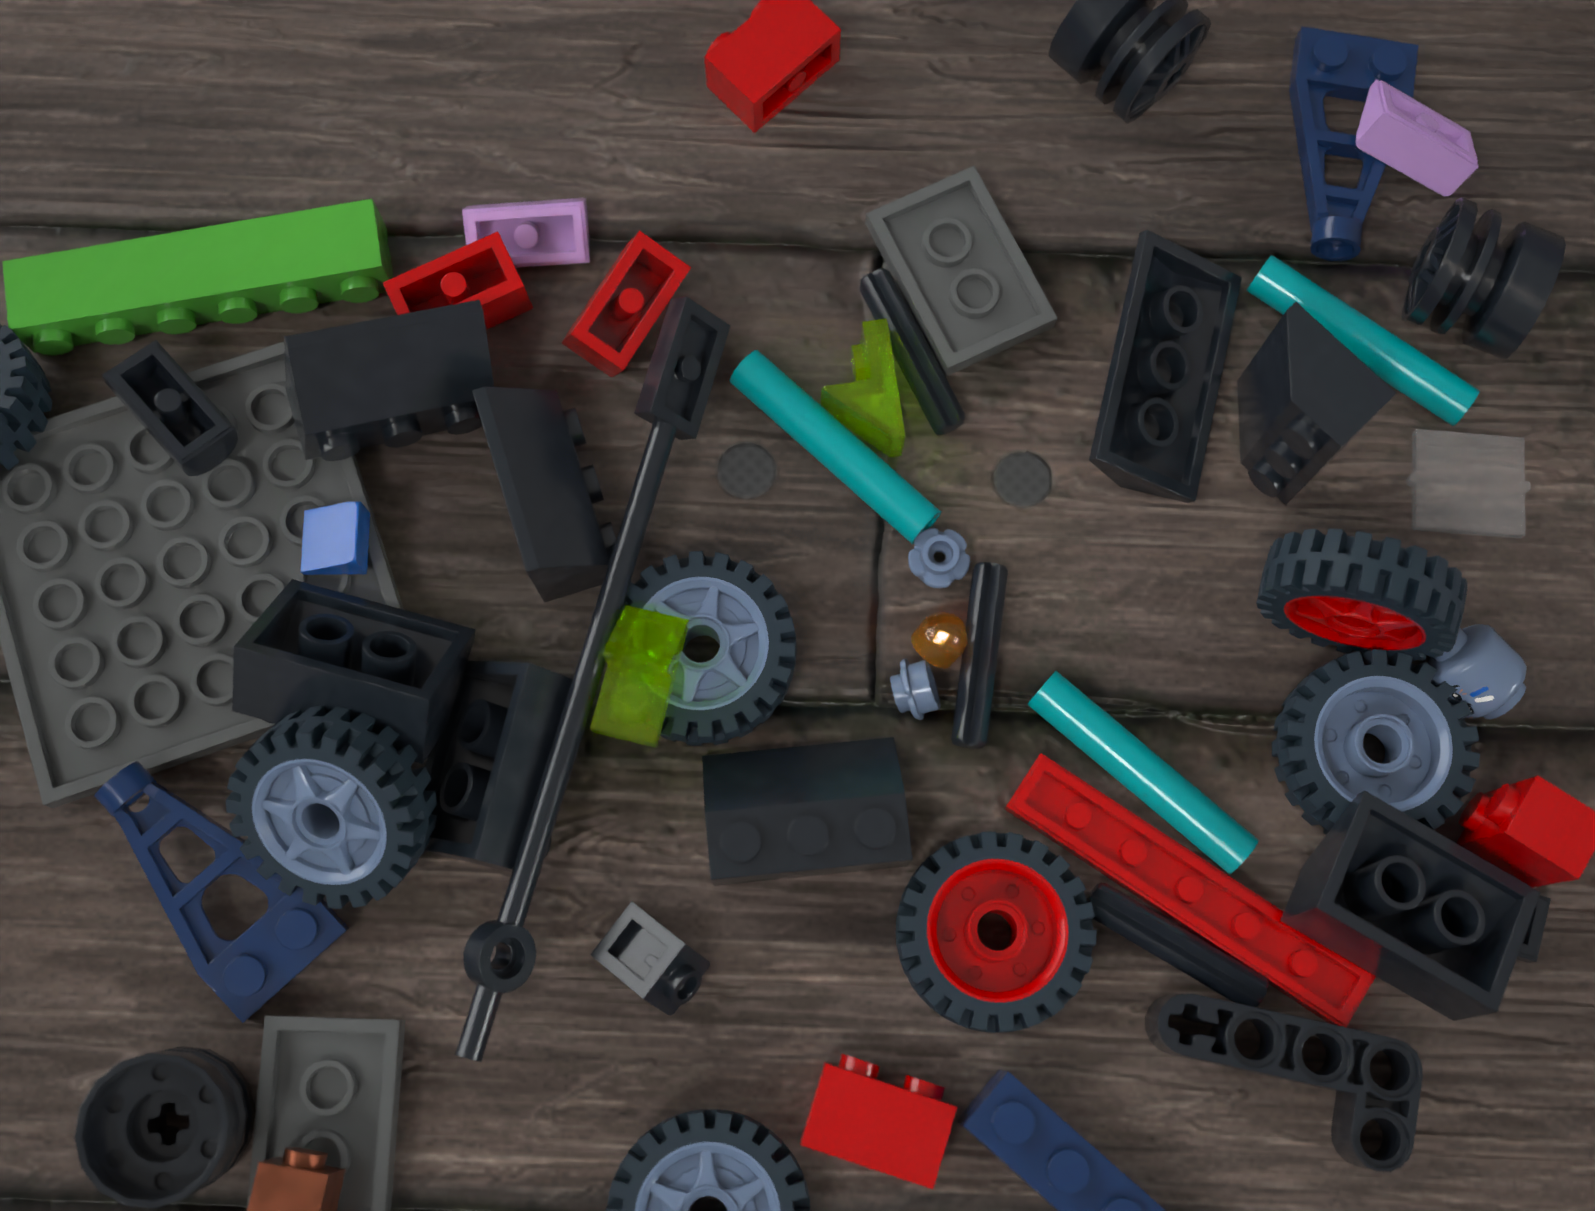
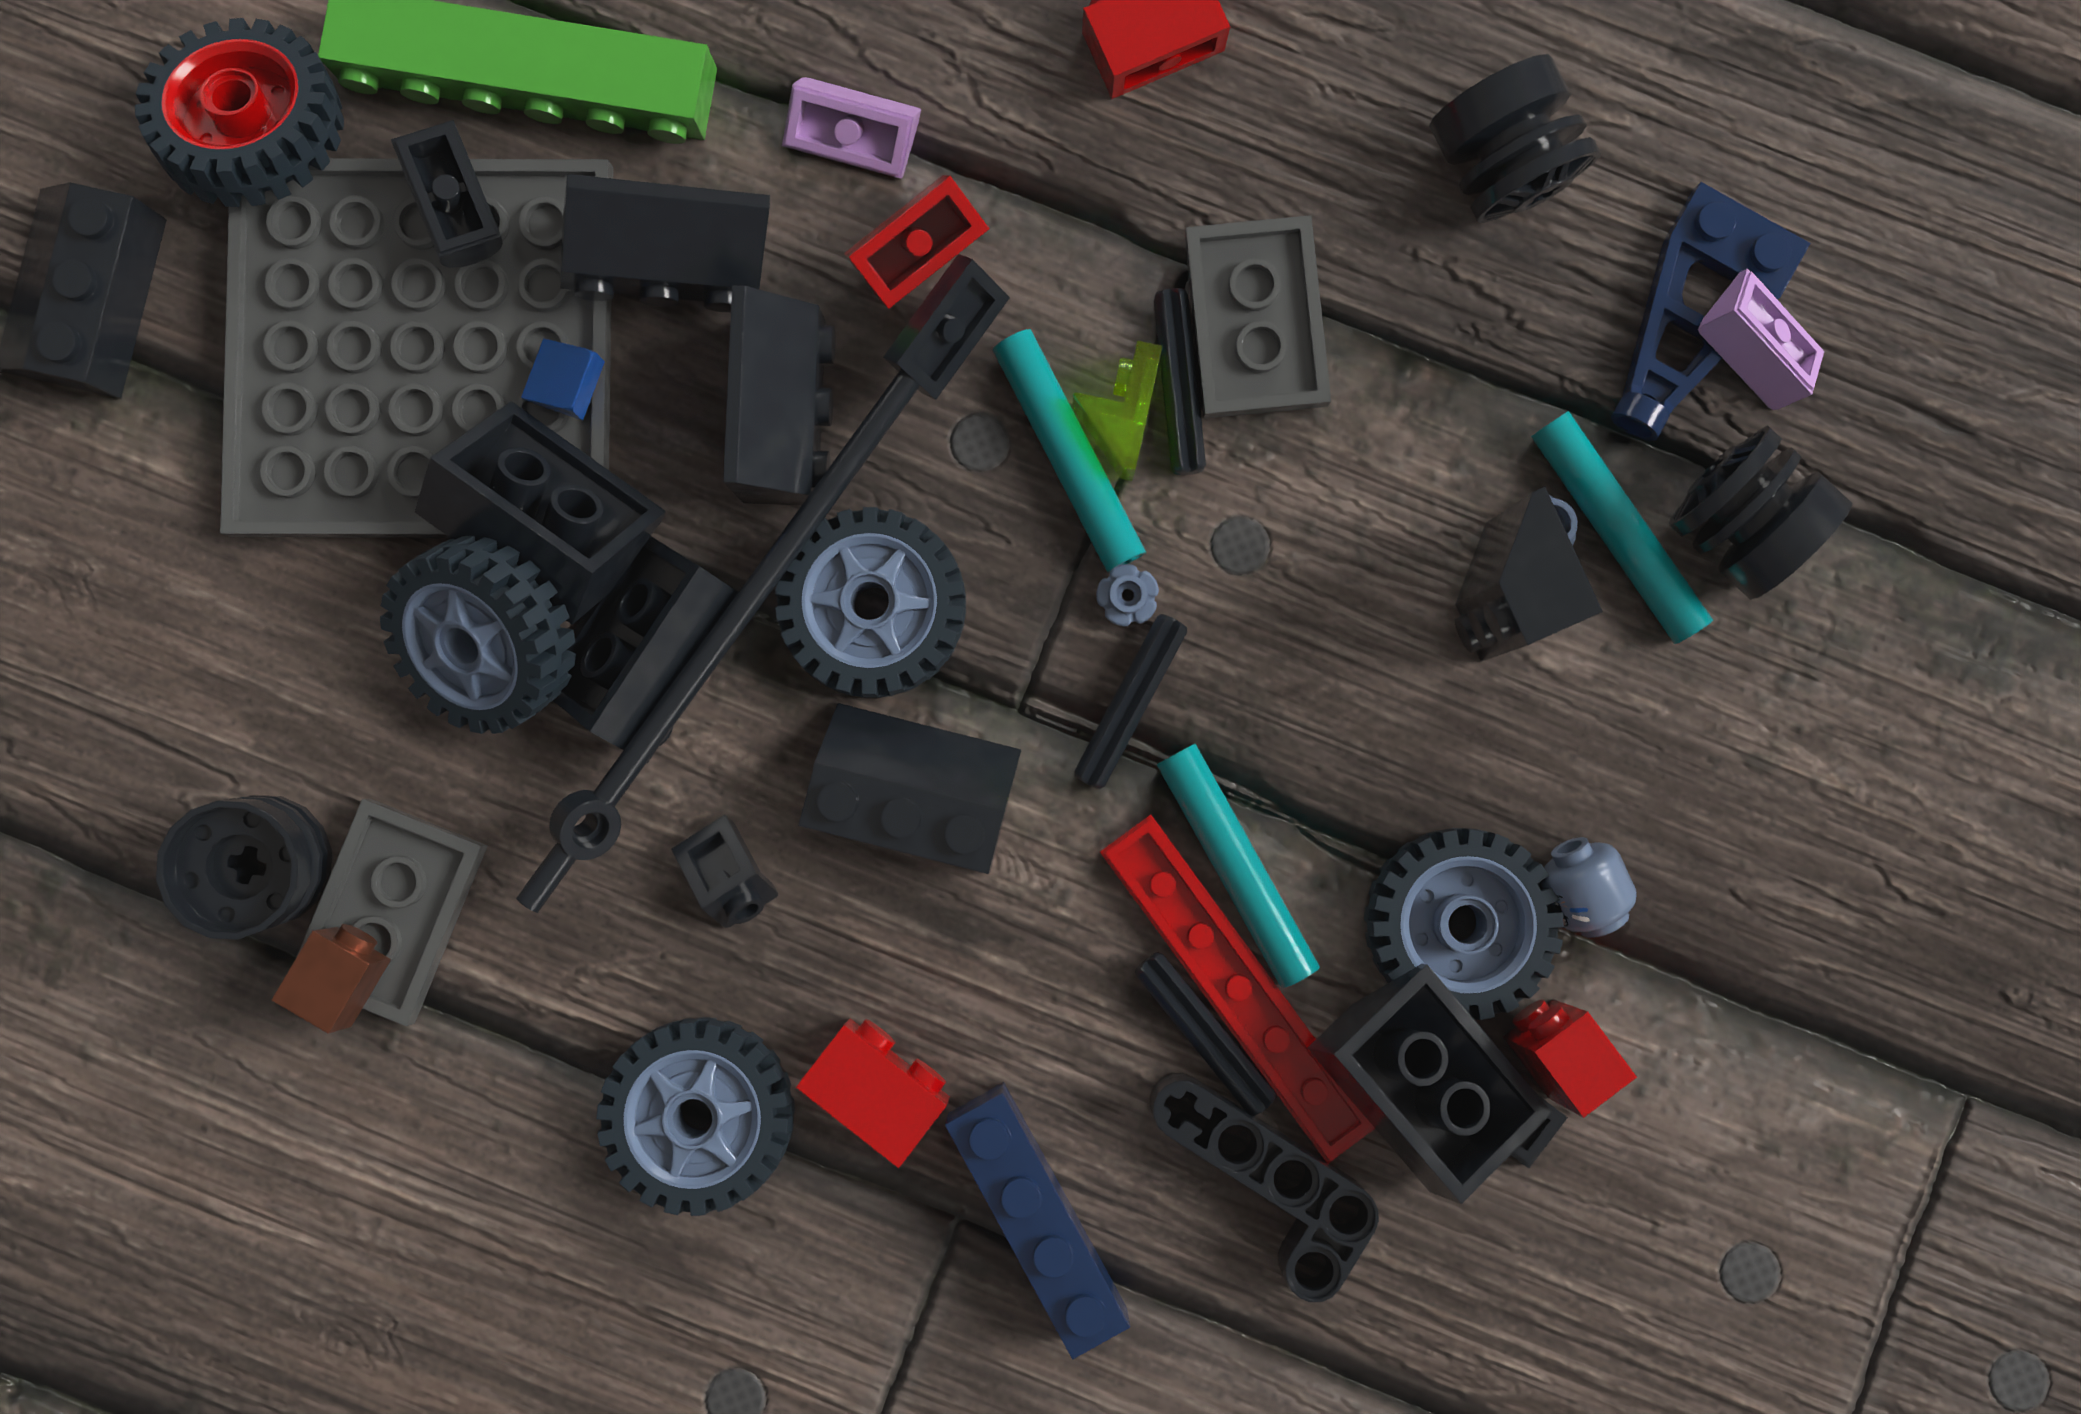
camera: 20 degrees right, 10 degrees up
(272, 950) = (353, 748): dark blue plate -> none
(464, 275) = (772, 163): red brick -> none
(639, 675) = (801, 611): clear neon green slope -> none
(915, 689) = (1057, 712): sand blue plate -> none
(940, 639) = (1097, 675): clear orange hinge -> none
(1047, 924) = (1034, 1013): wheel -> none
(1165, 370) = (1417, 488): black slope -> none
(1362, 593) = (1502, 782): black wheel -> none
(1468, 483) = (1665, 704): clear piece -> none

